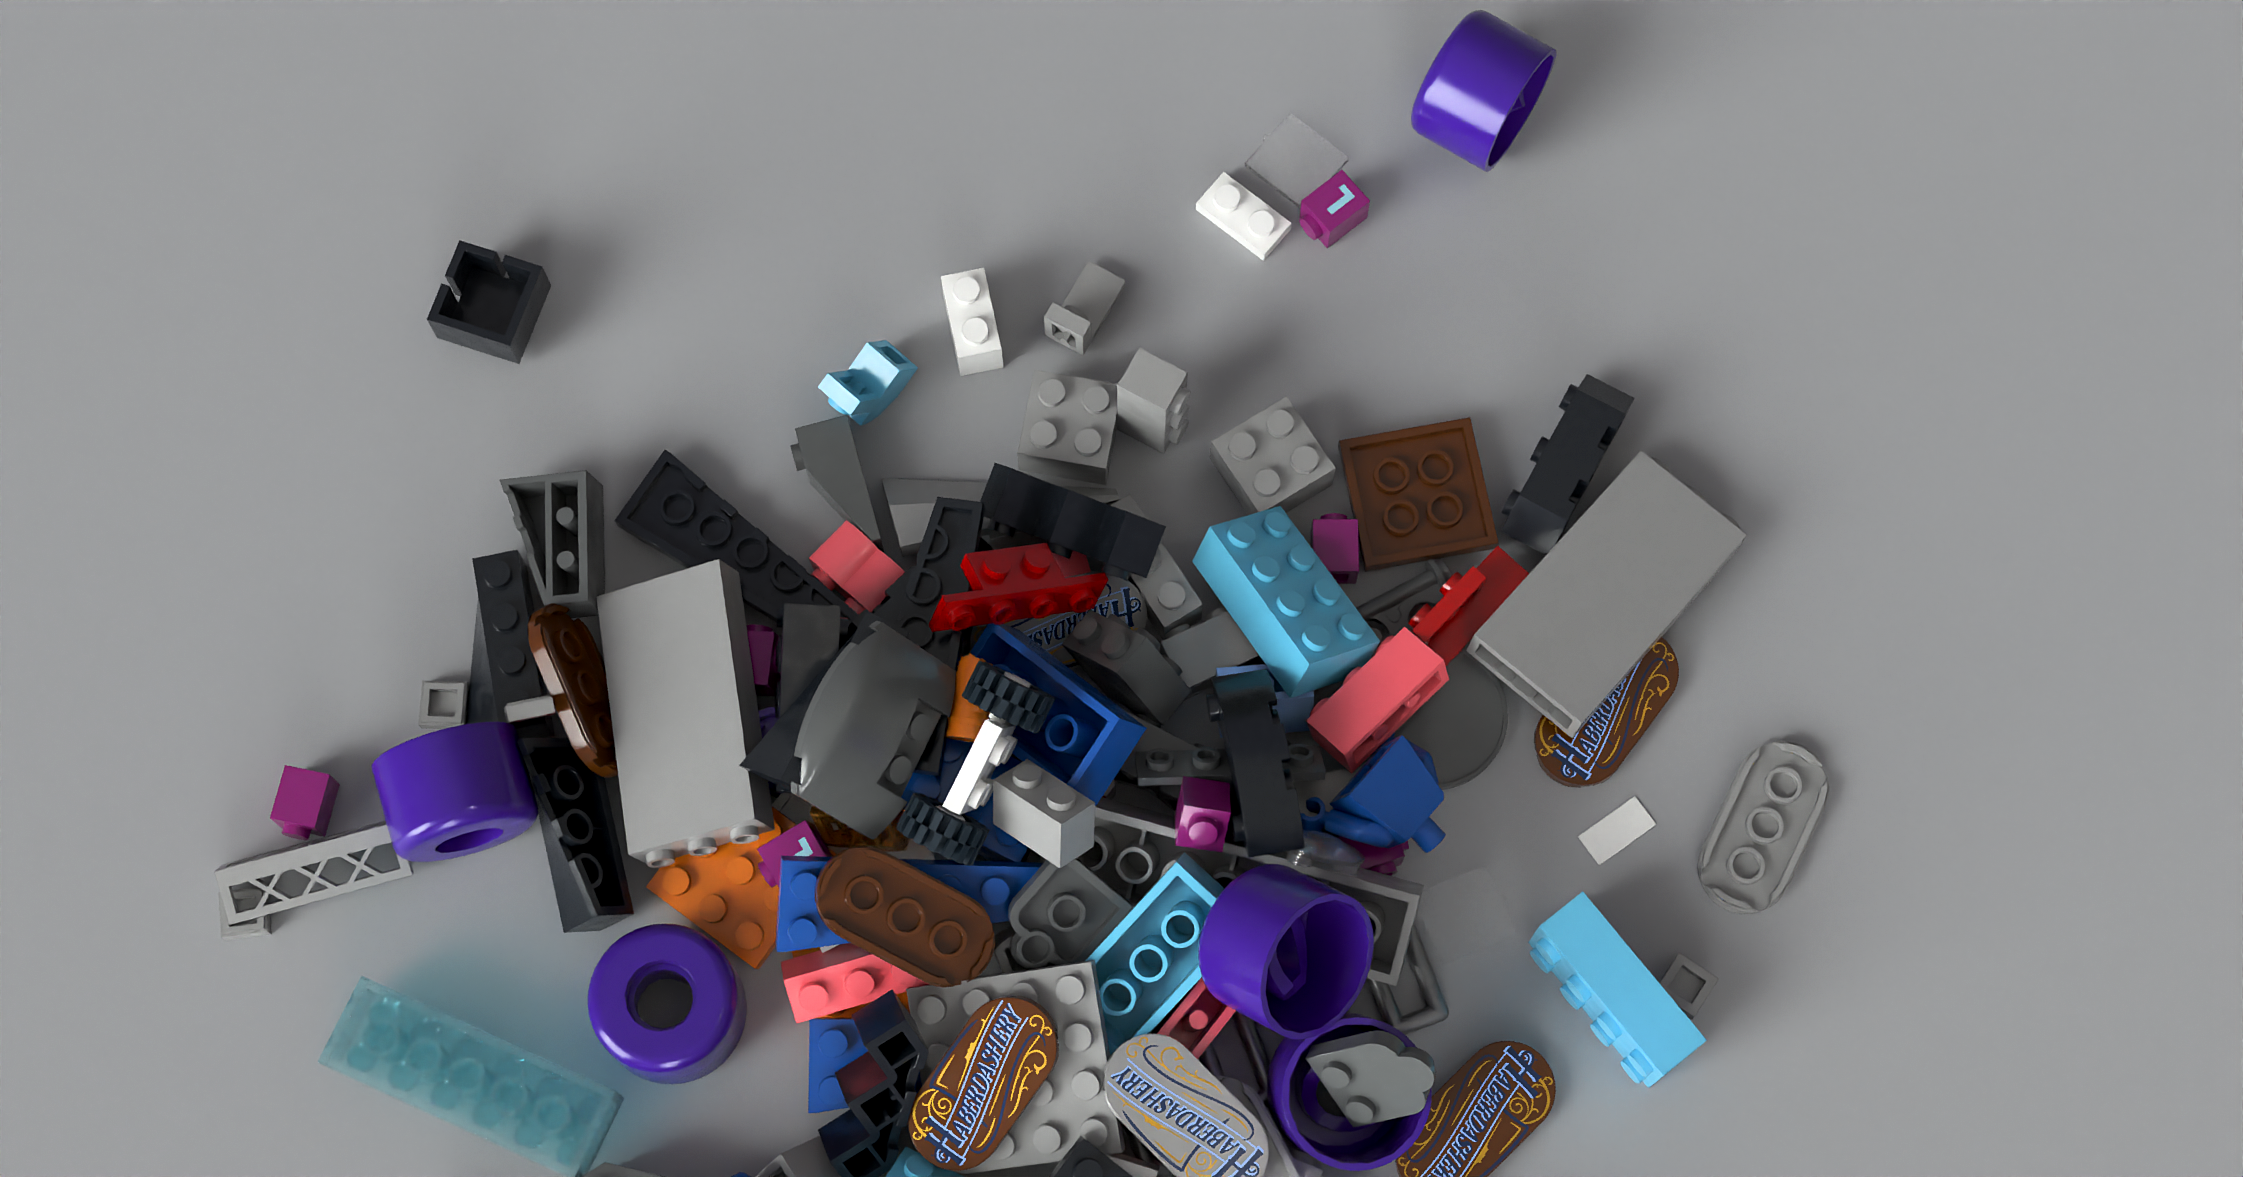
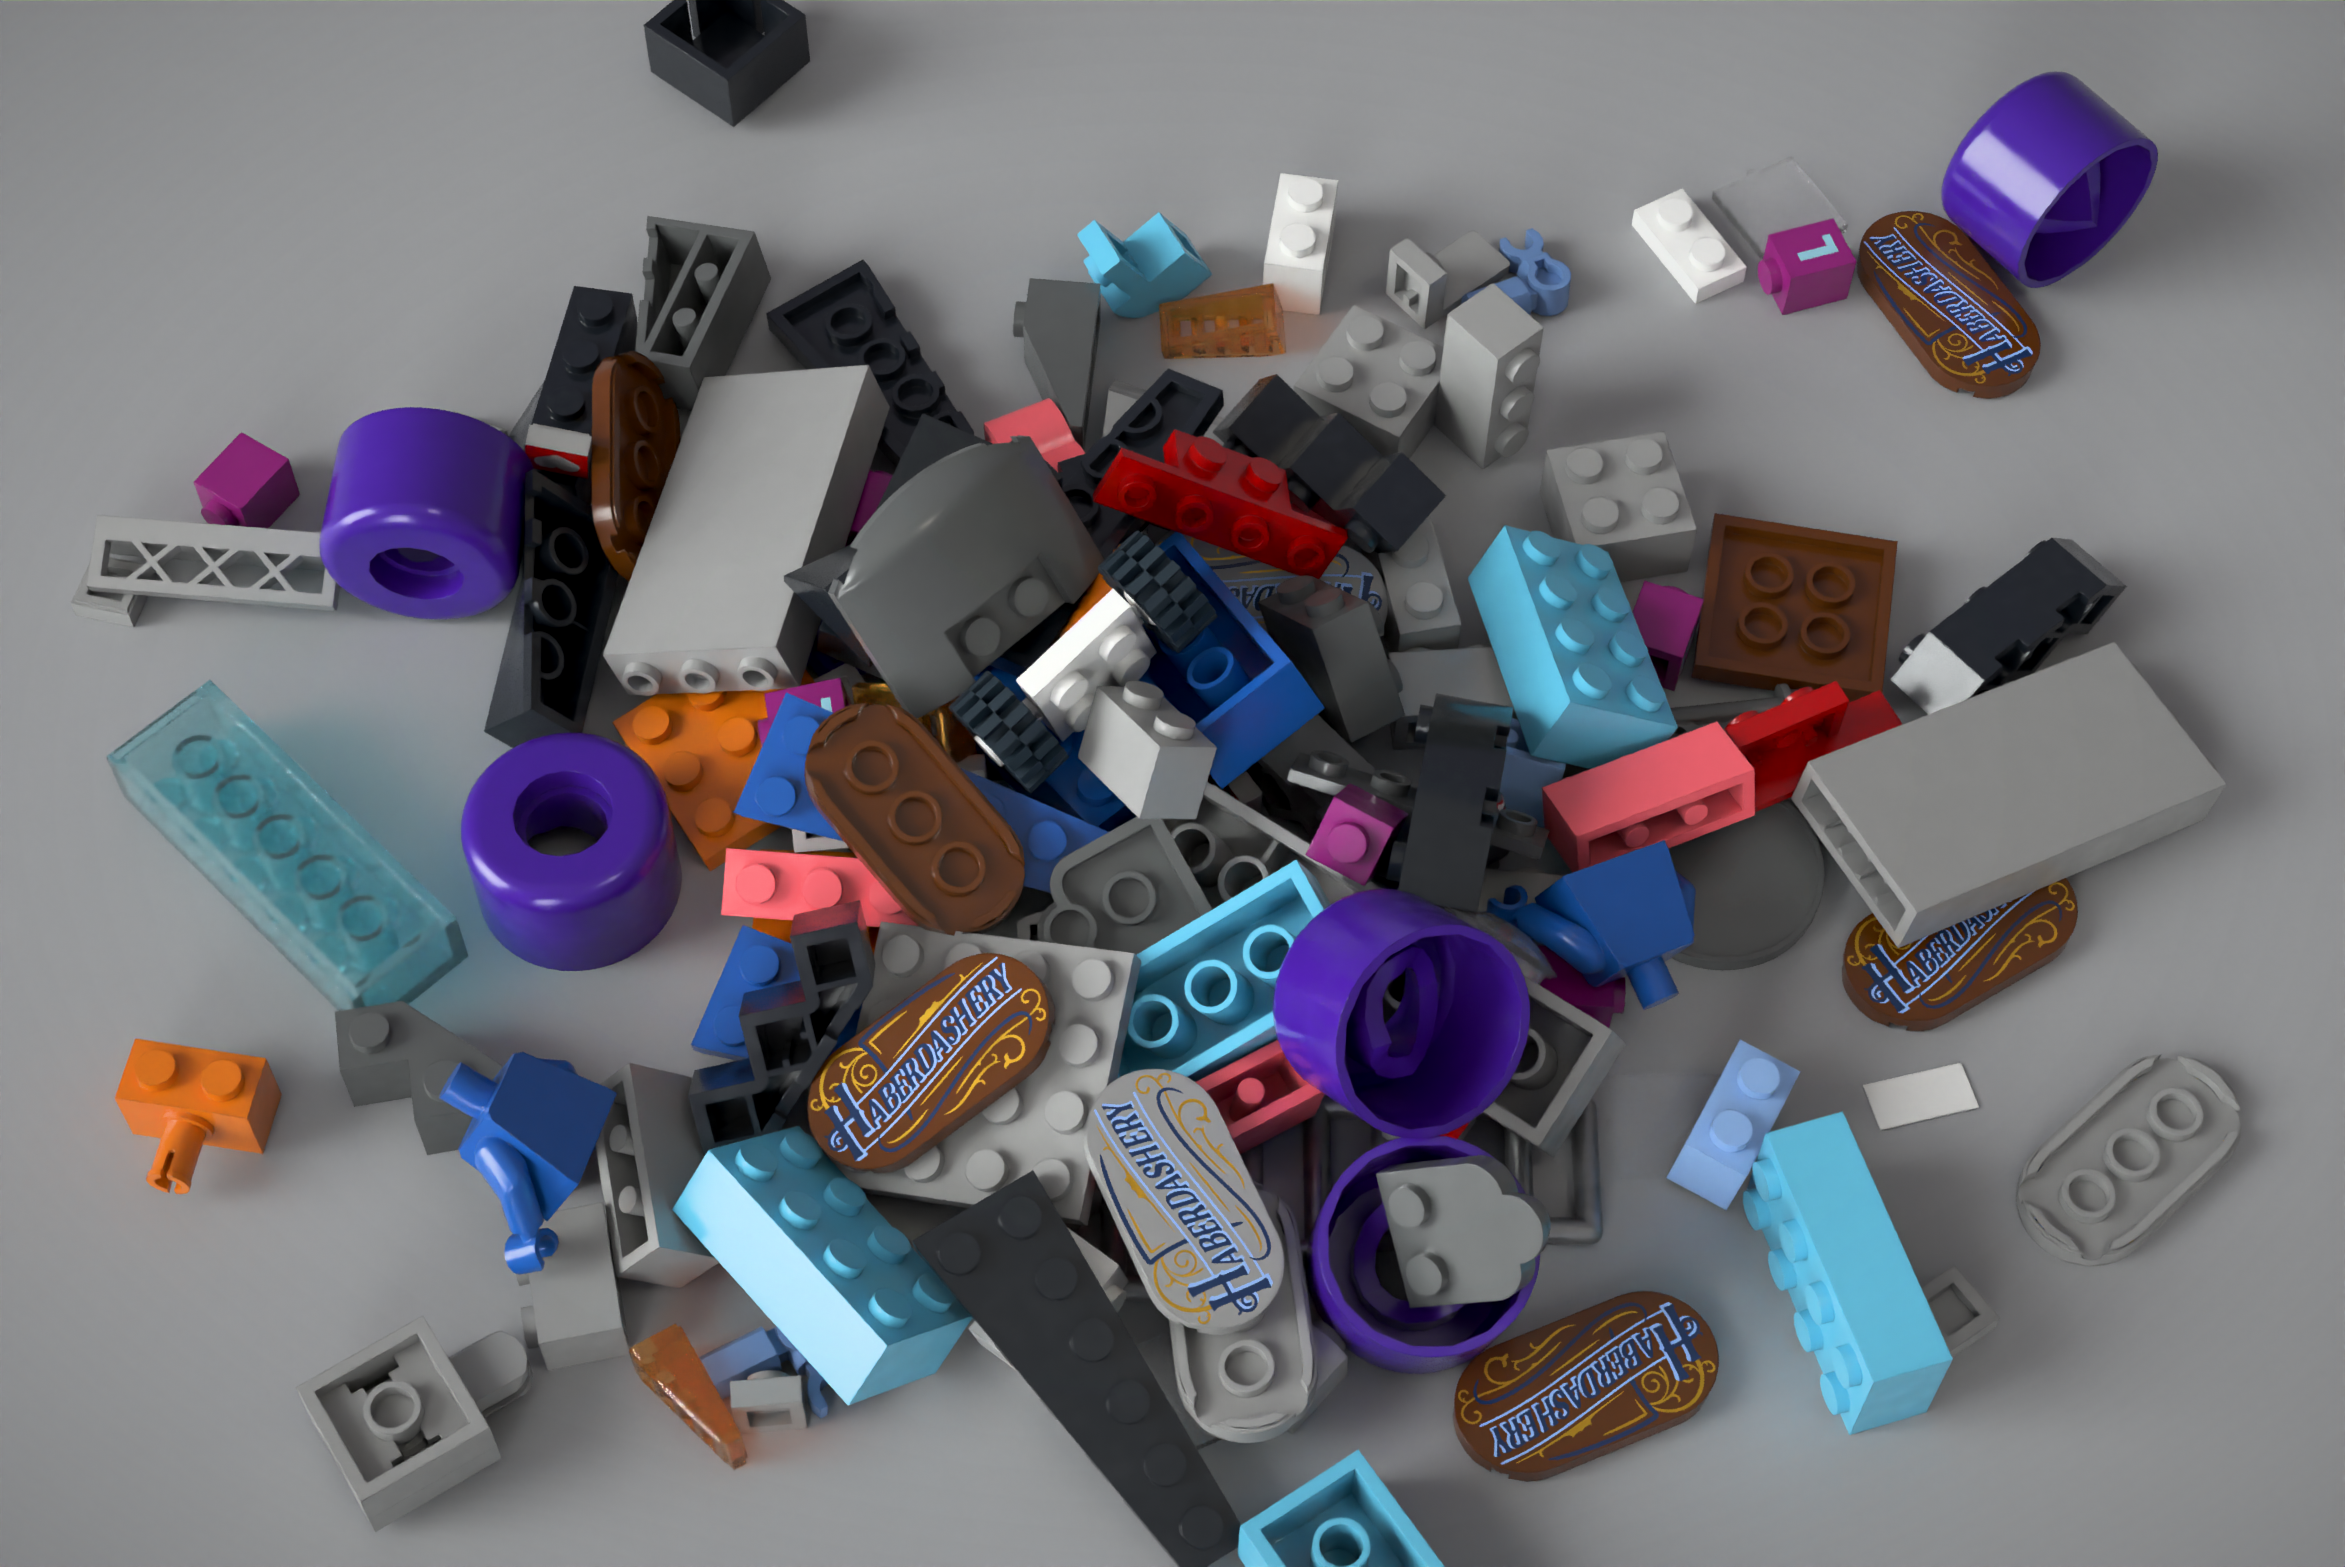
camera: 20 degrees right, 15 degrees down
(948, 384) = (1242, 341): none -> clear orange slope
(1154, 293) = (1540, 281): none -> medium blue bar
(1439, 200) = (1948, 304): none -> reddish brown tile
(1508, 907) = (1733, 1125): none -> light blue brick

